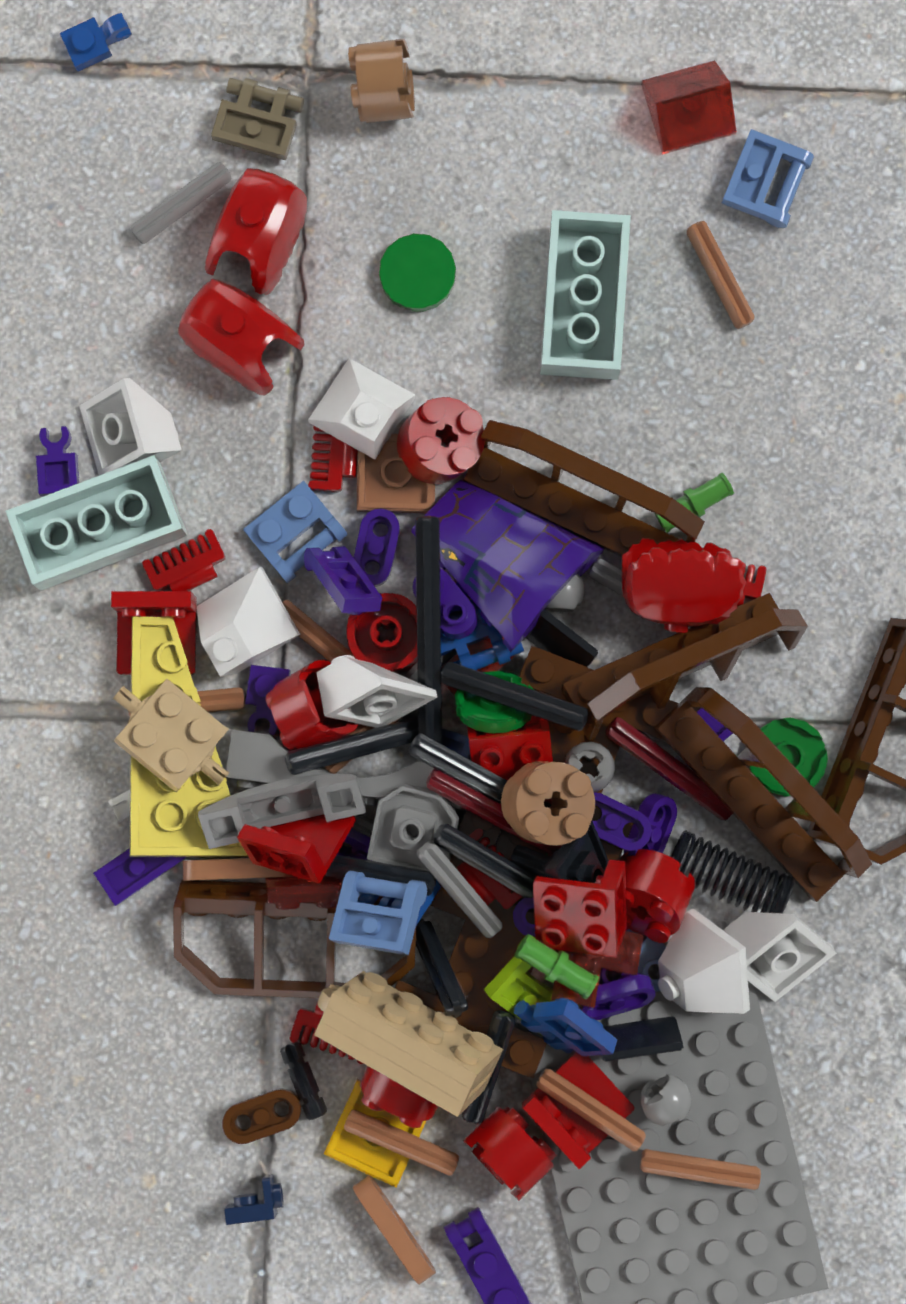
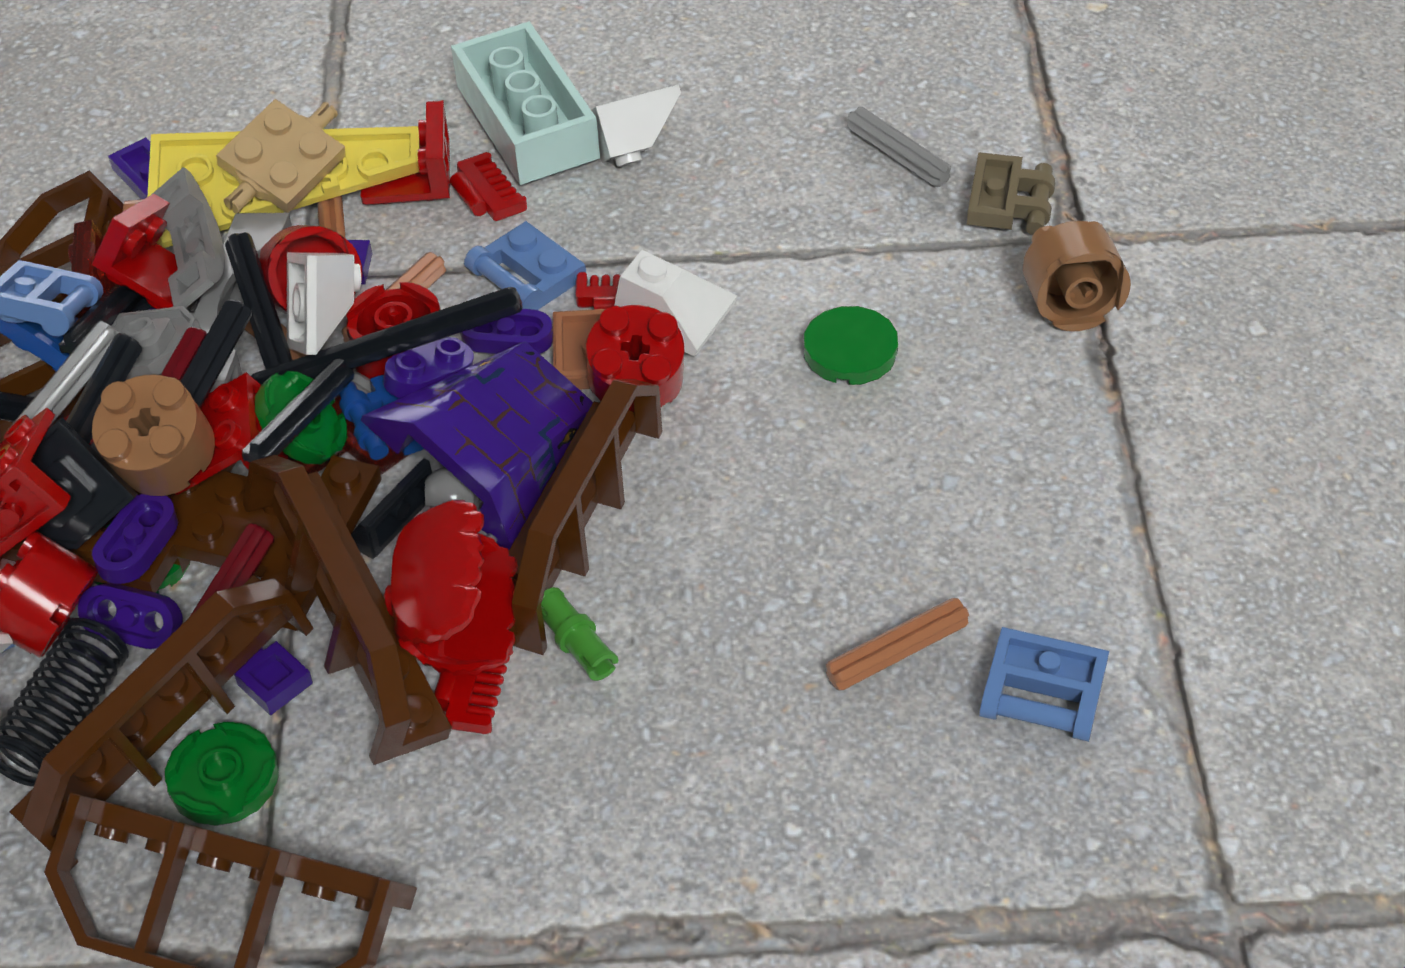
camera: 85 degrees right, 35 degrees down
(57, 468) = (593, 80): dark purple plate -> none
(89, 42) = (1067, 65): blue plate -> none
(233, 333) = (768, 178): red animal -> none
(244, 623) = (407, 223): white slope -> none
(261, 224) = (870, 187): red animal -> none
(343, 579) = (450, 270): dark purple plate -> none
(585, 295) = (840, 485): light aqua brick -> none
(590, 751) = (208, 507): light grey piece -> none
(690, 106) = (1126, 591): clear red slope -> none

